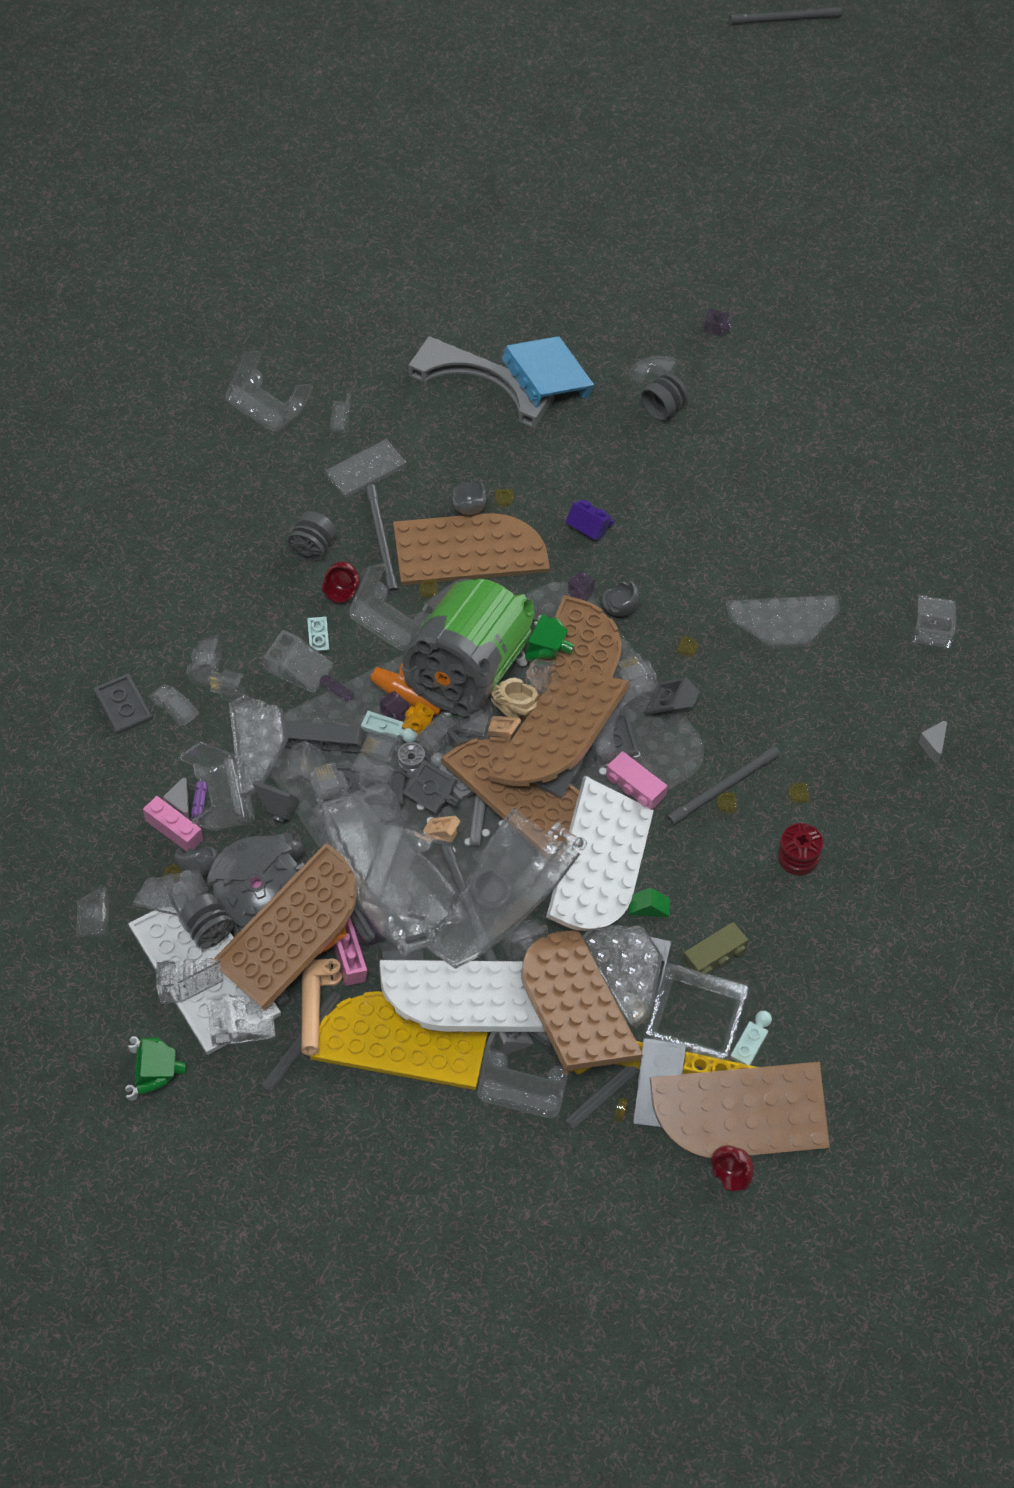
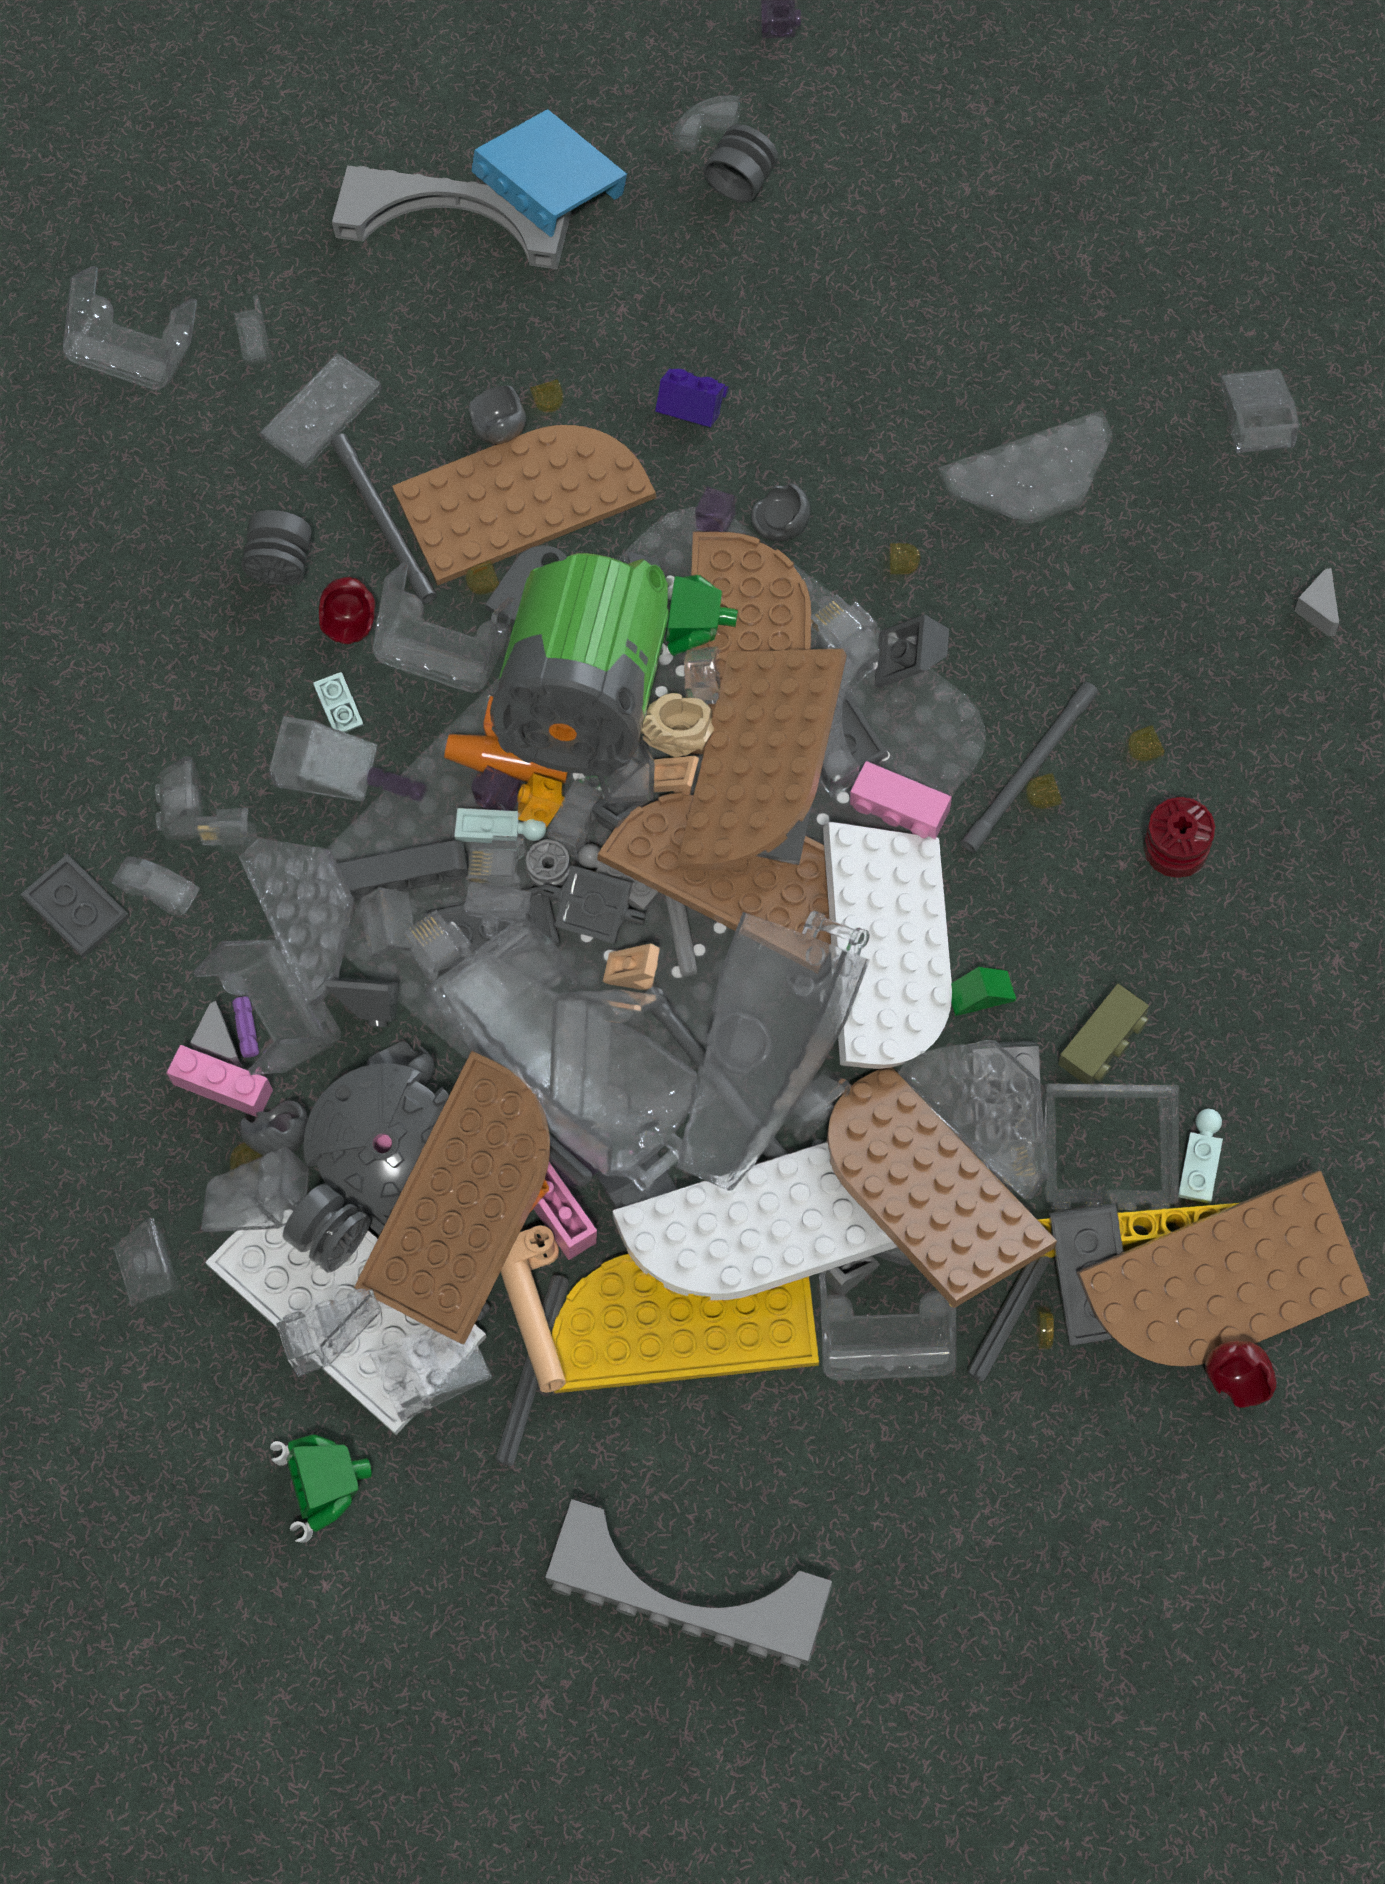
camera: 10 degrees left, 10 degrees up
(398, 1229) = (775, 1625): none -> light grey arch

